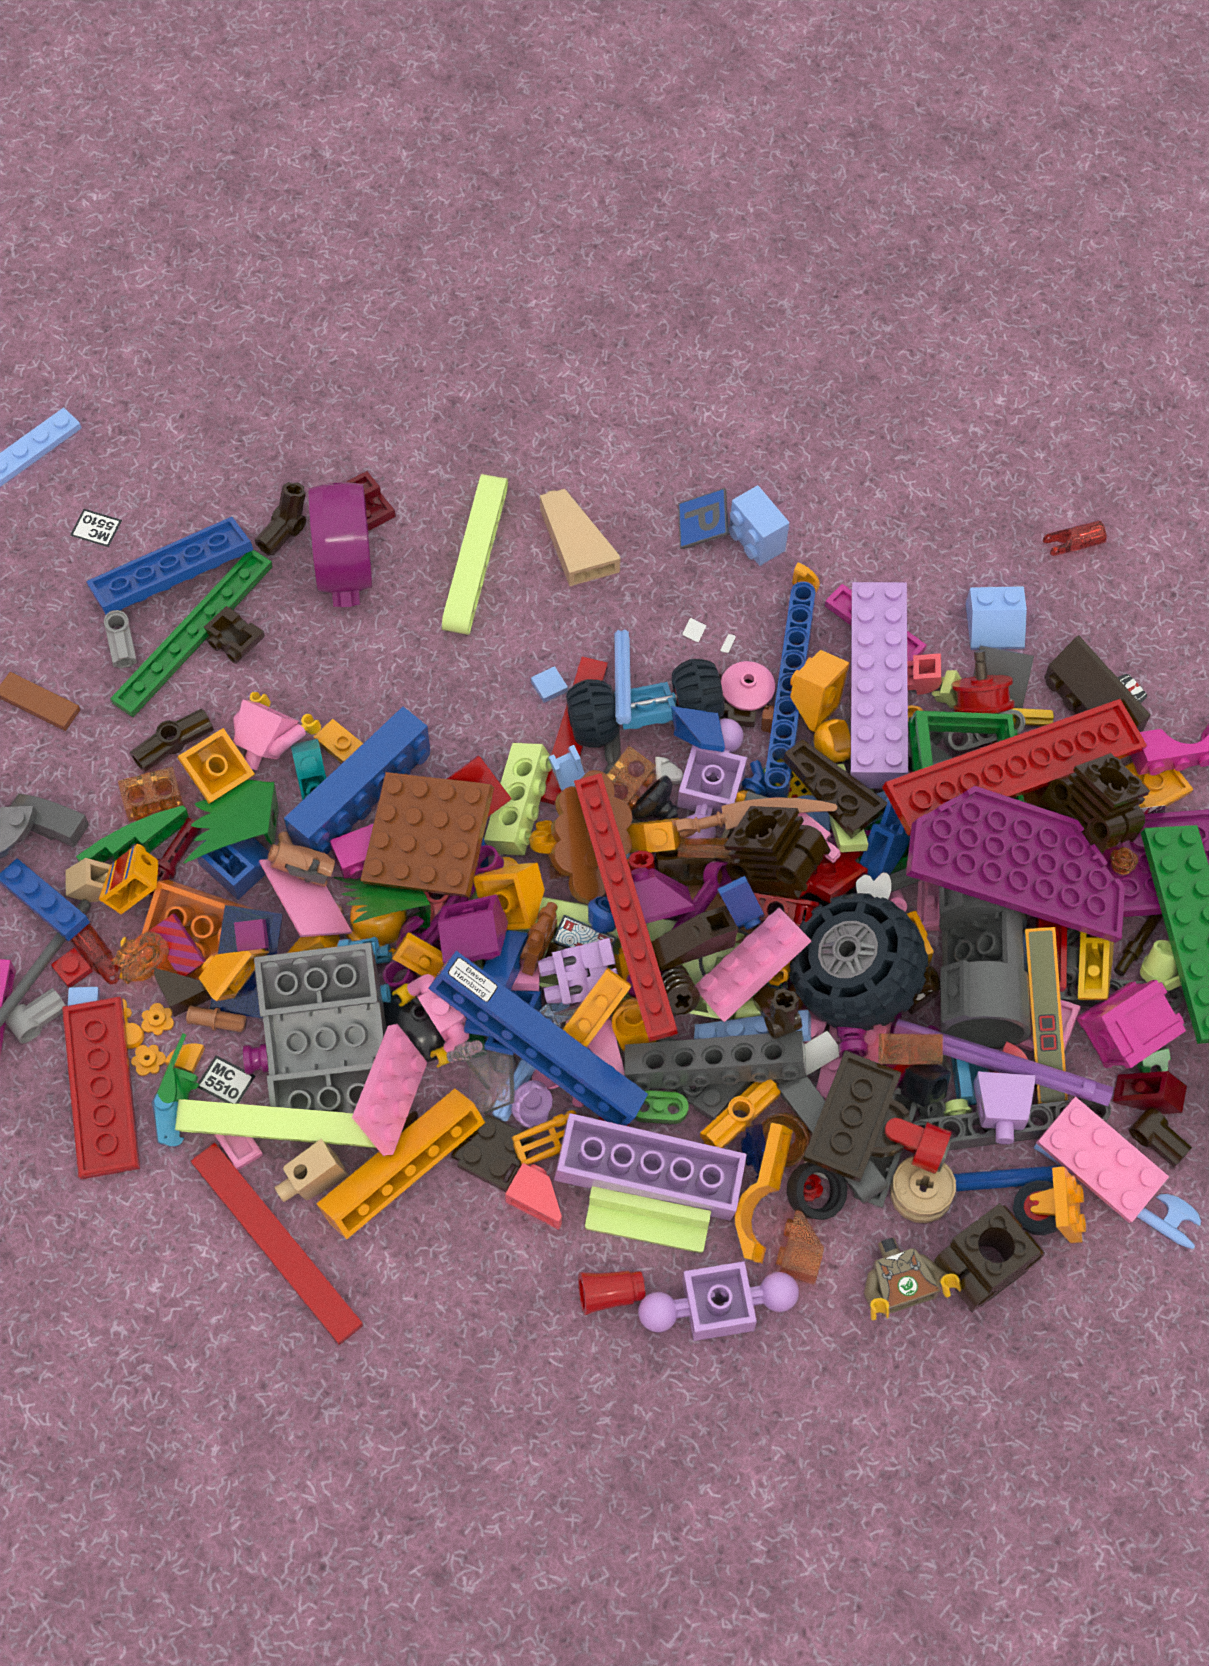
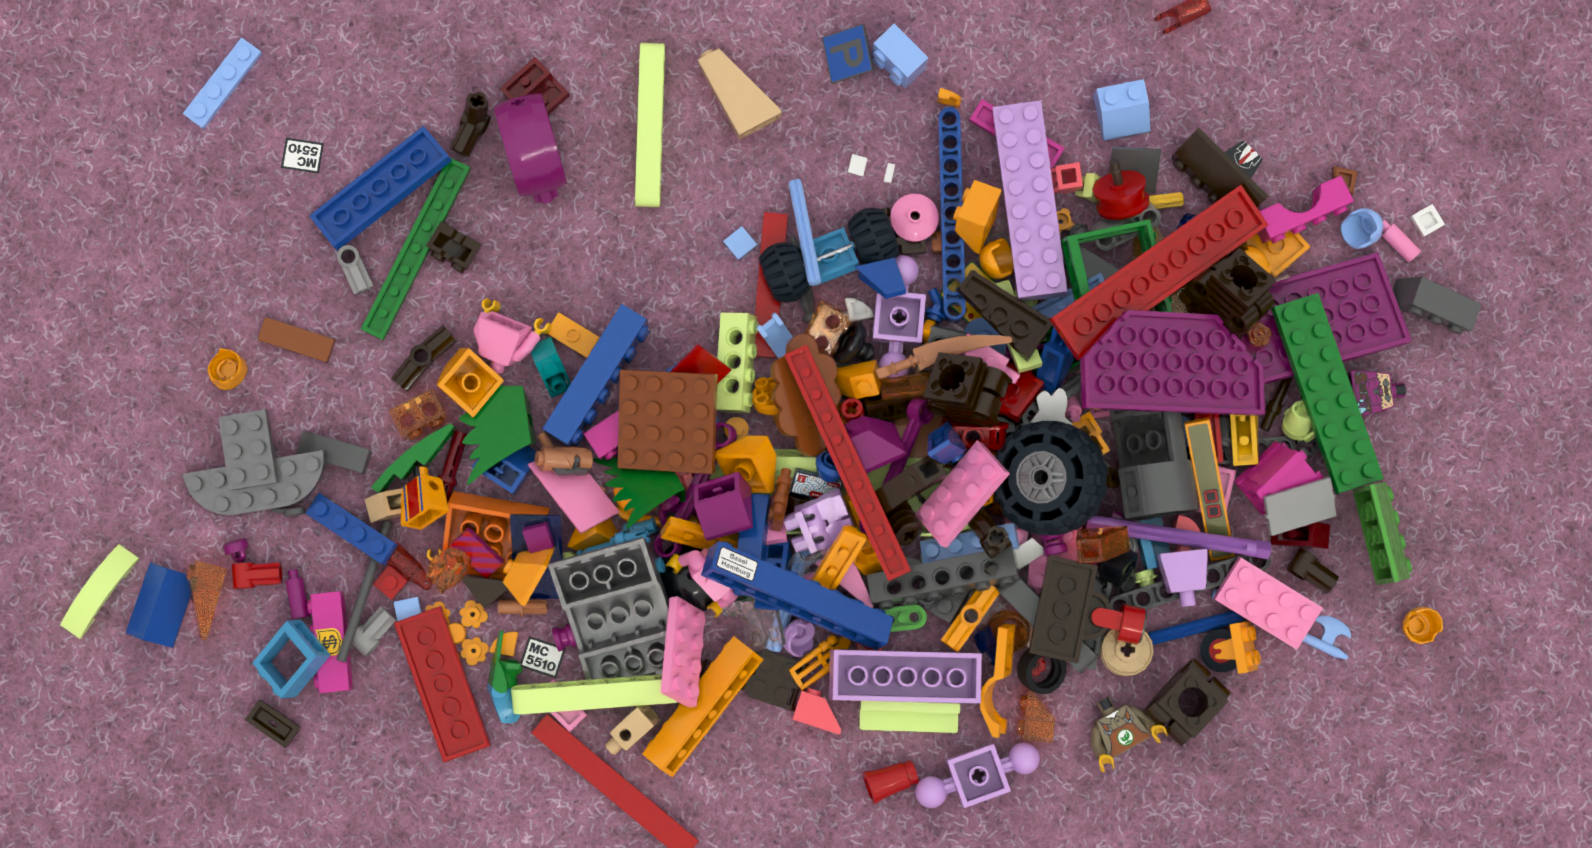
camera: 15 degrees left, 20 degrees up
(1152, 1046) = (1299, 506): none -> light grey piece

